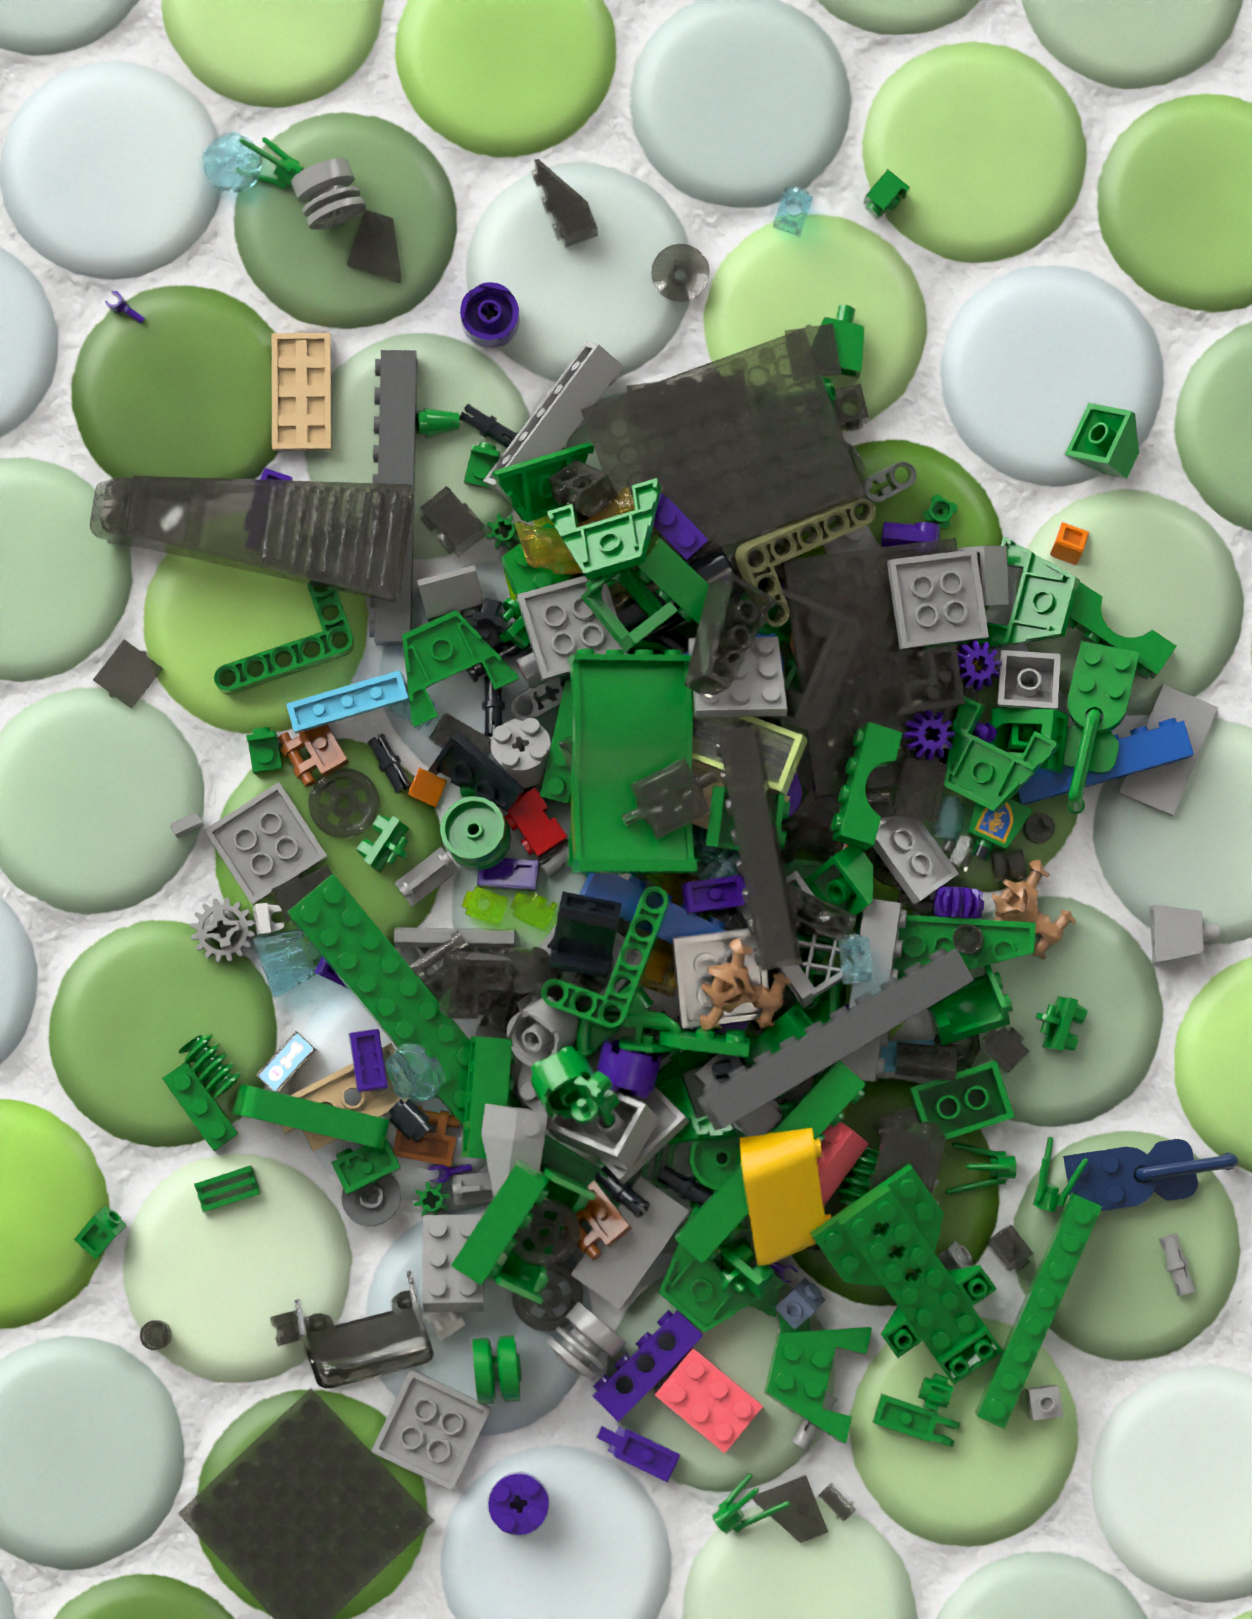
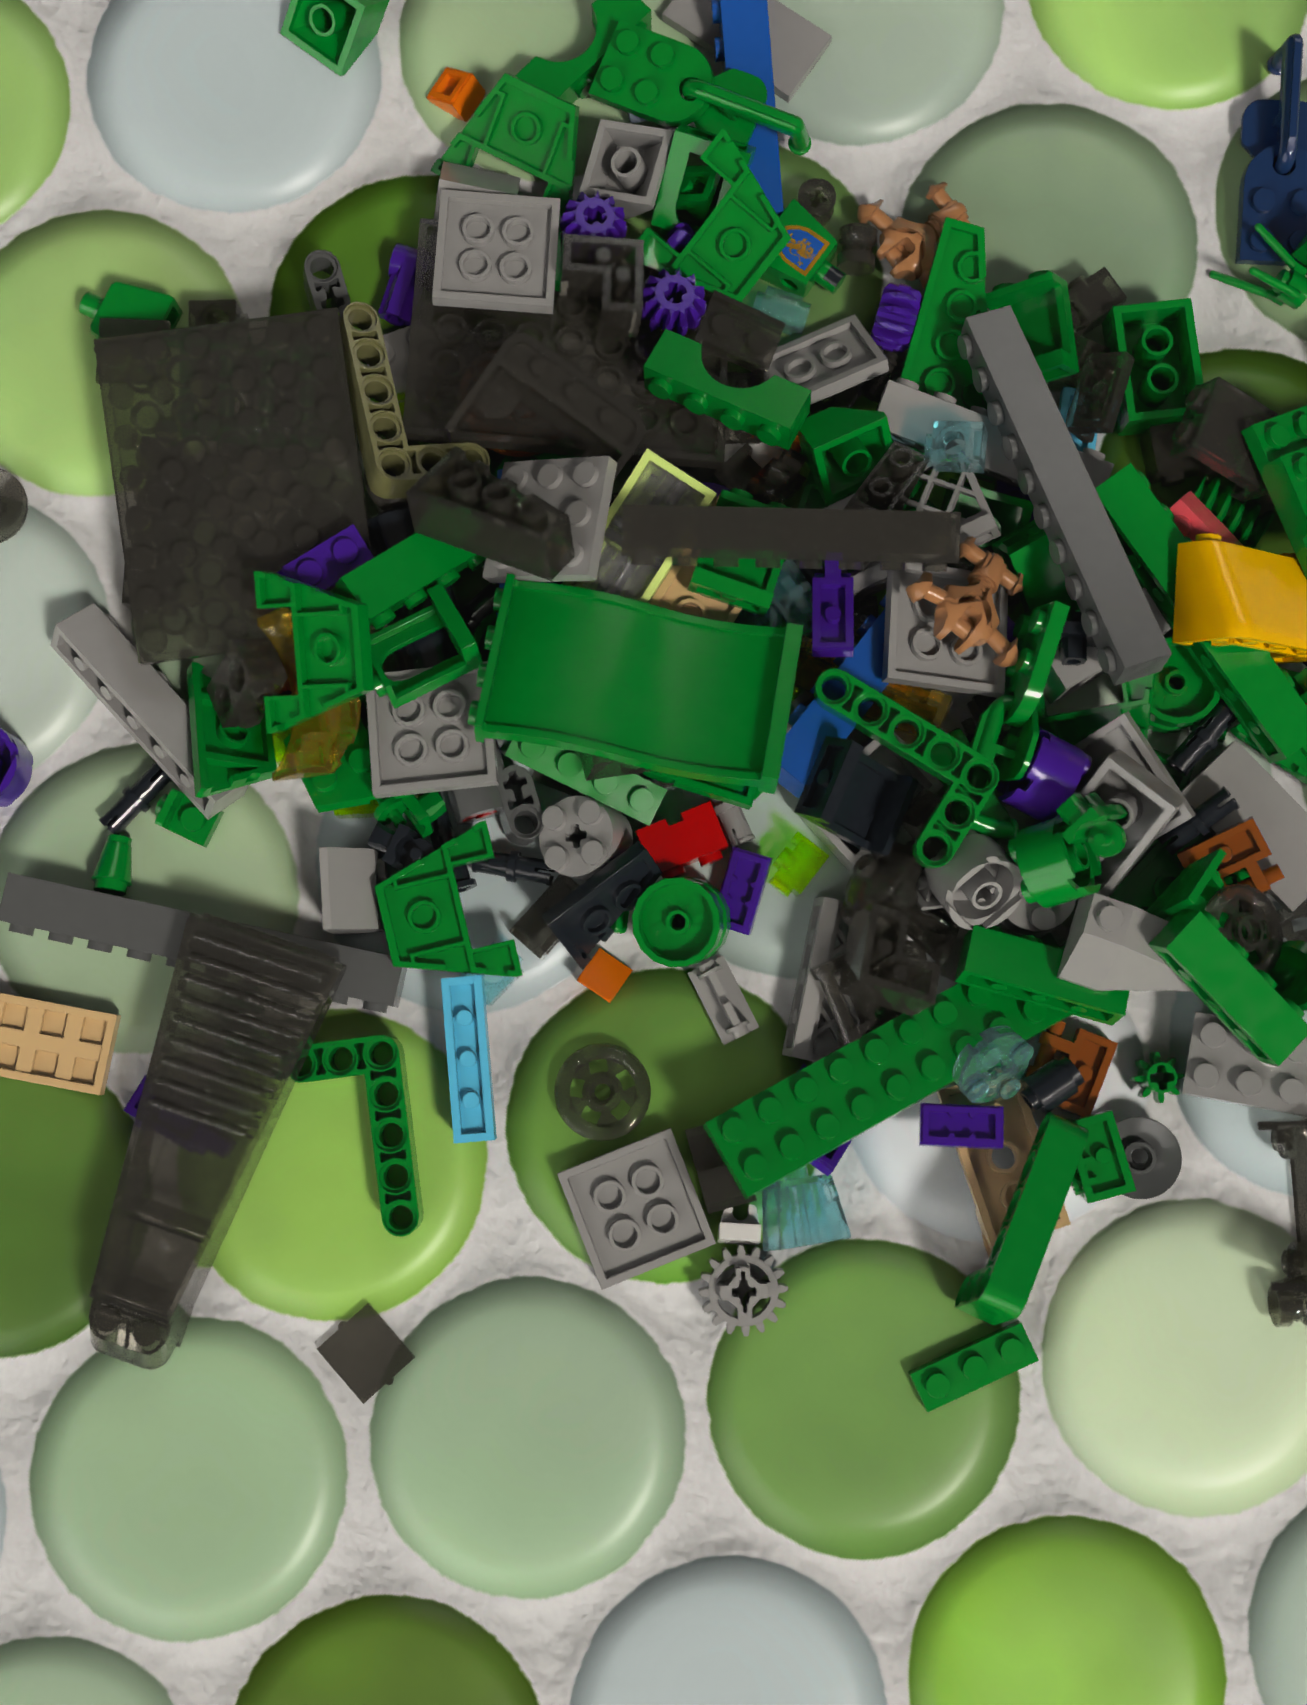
camera: 75 degrees left, 0 degrees up
(100, 1231) = (1120, 1536): green bracket -> none
(152, 1337) = (1281, 1493): clear smoke wheel -> none
(186, 824) = (589, 1312): light grey tile -> none
(203, 1196) = (1096, 1385): green tile -> none
(210, 1064) = (923, 1341): green piece -> none
(264, 750) = (509, 1185): green bracket -> none
(287, 1062) = (937, 1236): slope -> none
(324, 753) = (522, 1105): dark orange plate -> none
(388, 845) = (673, 1042): green hips -> none
(389, 763) = (562, 1019): black pin -> none
(445, 1172) = (1123, 1053): dark purple hand -> none
(453, 521) = (254, 868): clear smoke brick -> none
(472, 1188) = (1148, 1018): light grey hinge -> none
(493, 914) = (779, 912): clear neon green brick -> none
(499, 538) = (274, 798): green gear -> none
(670, 798) = (697, 641): clear smoke plate -> none
(948, 508) = (373, 233): green plate -> none
(959, 852) = (827, 306): clear smoke tile -> none
(964, 939) = (958, 298): clear smoke wheel -> none
(1001, 1168) = (1241, 341): green plant -> none
(1058, 1021) = (1072, 226): green hips -> none
(1178, 933) = (985, 60): light grey torso -> none

